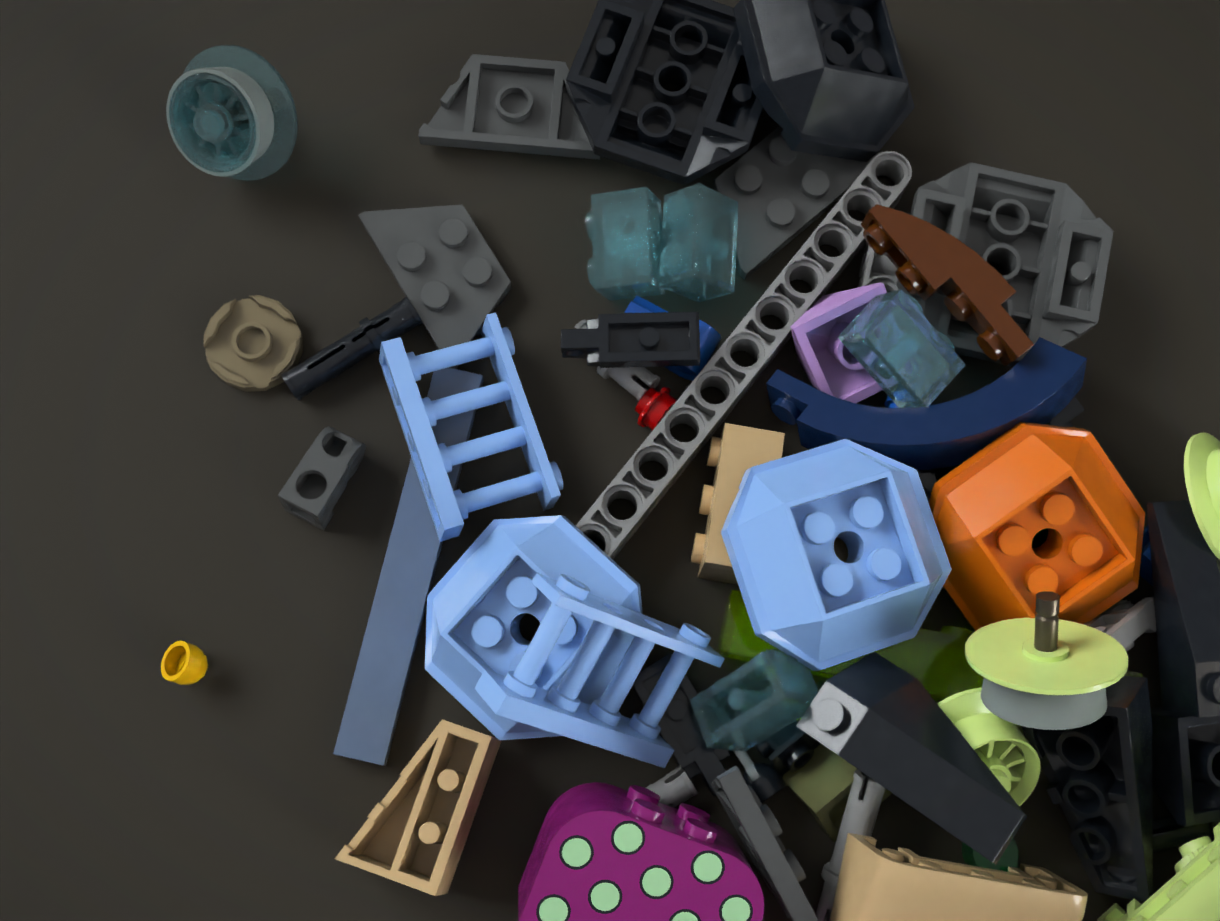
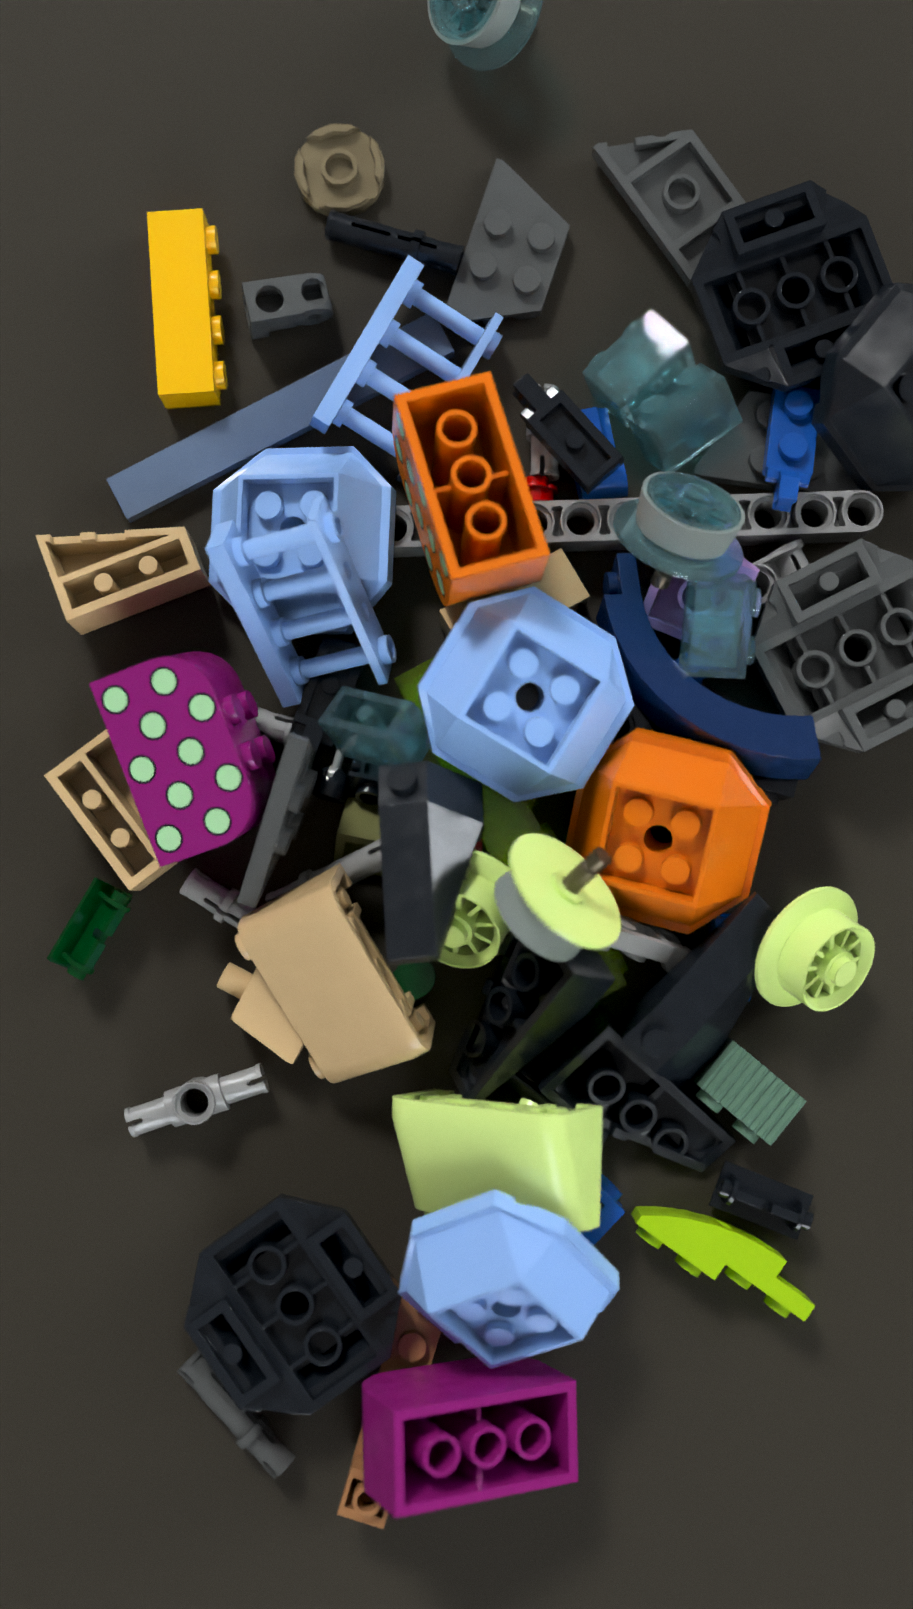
camera: 50 degrees right, 10 degrees up
(183, 663) = (79, 325): yellow hinge -> none
(252, 563) = (185, 308): none -> yellow brick
(631, 454) = (467, 489): none -> orange brick
(792, 181) = (790, 444): none -> blue hinge
(803, 311) = (682, 528): none -> clear light blue piece
(936, 260) = (804, 595): reddish brown slope -> none

